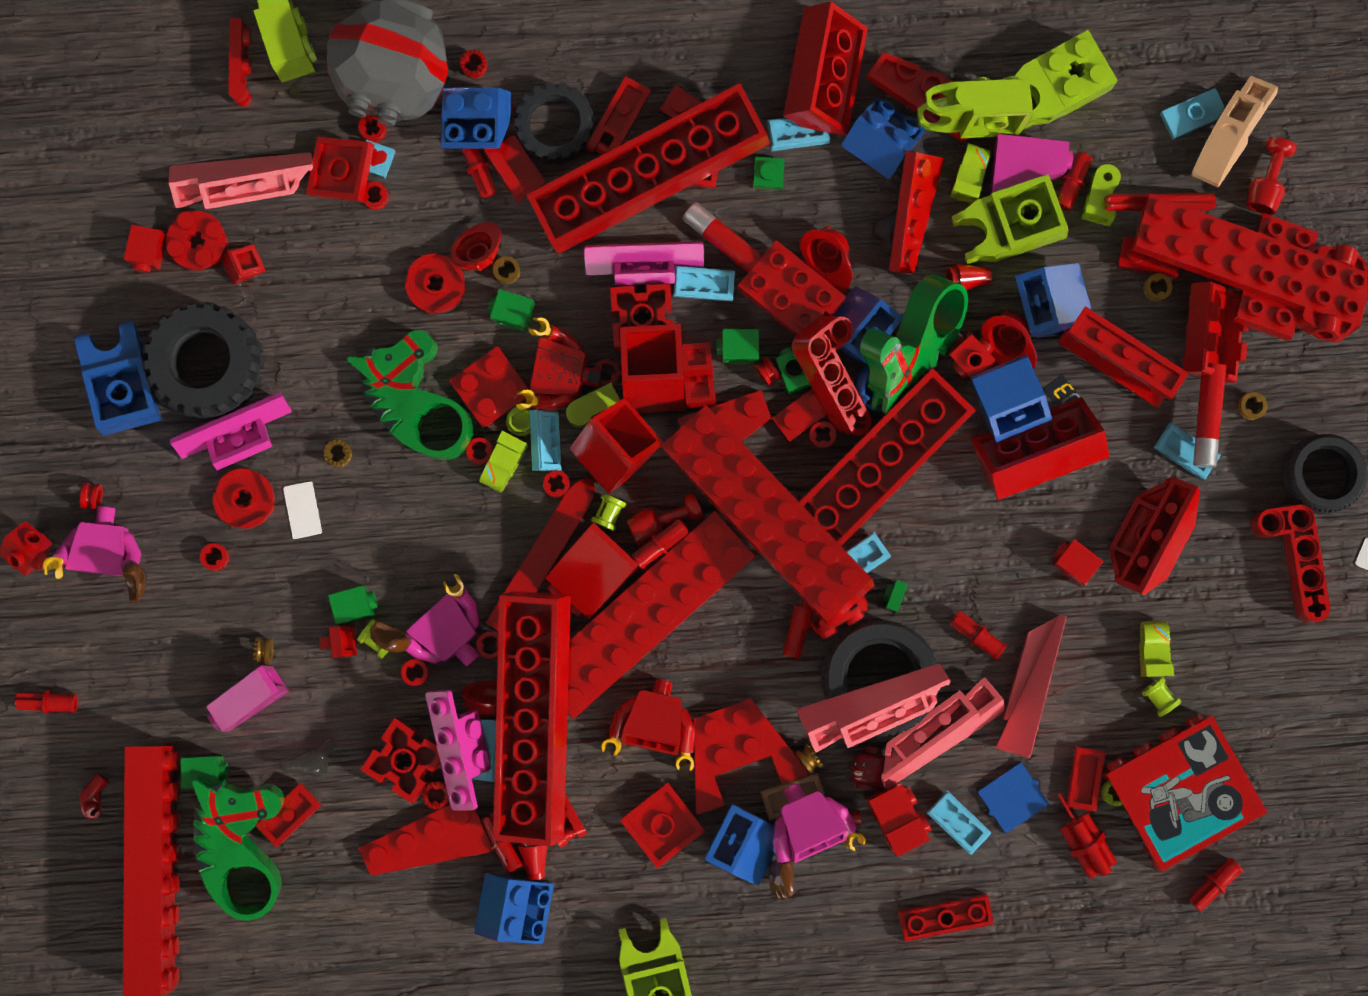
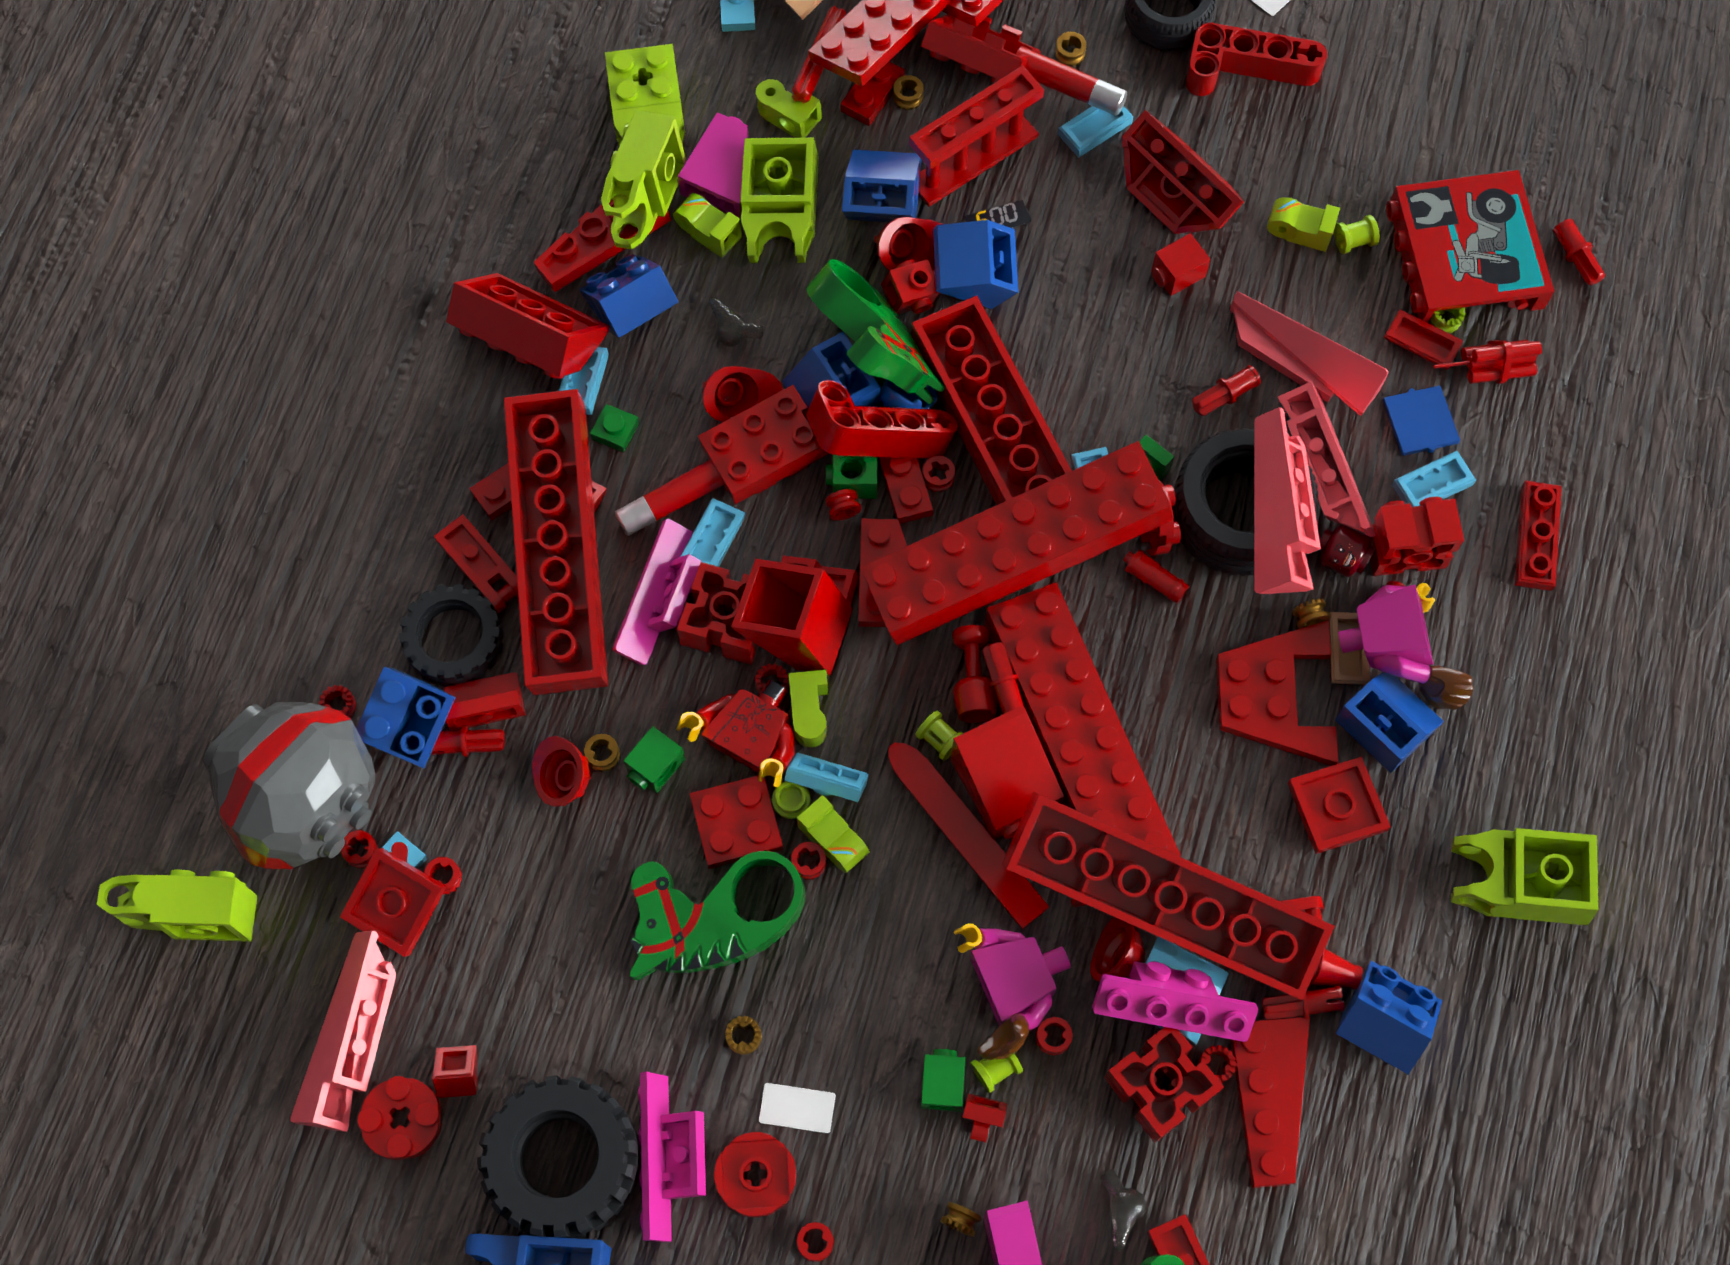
camera: 70 degrees left, 15 degrees down
(145, 248) = (382, 1187): red brick -> none
(239, 63) = (204, 980): red plate -> none
(418, 281) = (564, 829): red plate -> none
(481, 646) = (1054, 920): red bush -> none
(554, 475) = (882, 796): red bush -> none
(615, 445) = (869, 690): red slope -> none
(654, 723) = (1214, 768): red torso -> none
(738, 345) = (801, 523): green brick -> none
(915, 203) = (724, 289): red wing -> none
(969, 275) = (818, 259): red cone -> none
(1042, 452) = (1046, 257): red slope -> none
(1074, 180) = (756, 126): red axle -> none

